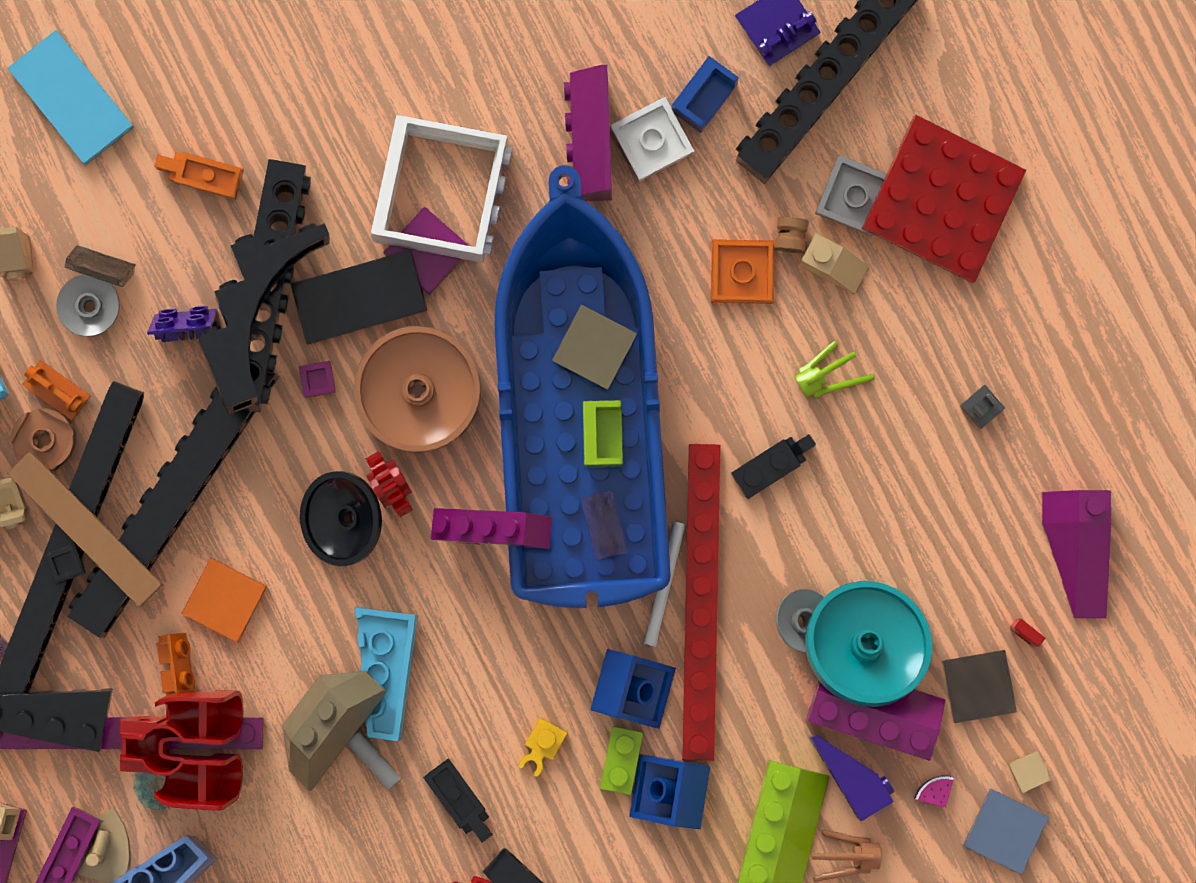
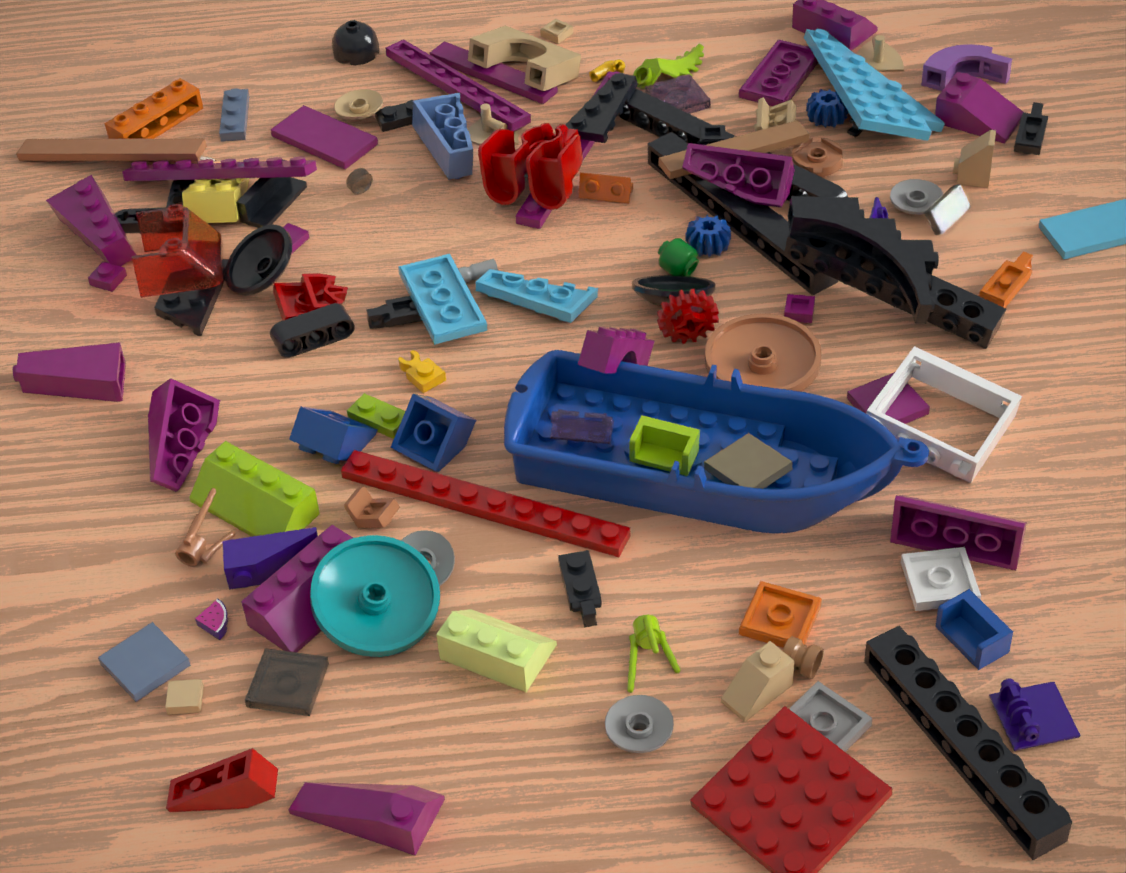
camera: 110 degrees right, 40 degrees down
(55, 389) = (854, 171): orange hinge -> none
(142, 493) = (748, 174): none -> magenta wedge
(224, 600) = (643, 224): orange tile -> none
(230, 504) = (708, 235): none -> blue gear
(281, 535) = (678, 257): none -> green head
(327, 722) = (512, 246): dark tan wedge -> none
(359, 297) = (861, 348): black tile -> none
(437, 766) = (442, 299): none -> medium azure tile
(662, 596) = (511, 481): white bar -> none
(758, 701) = (368, 511): none -> nougat bracket
(873, 511) = (493, 648): none -> yellowish green slope
(929, 341) = (639, 713): none -> light grey dish
(982, 406) = (556, 769): dark grey tile -> none
(1027, 633) = (312, 730): red tile -> none
(1112, 682) = (226, 784): none -> red slope

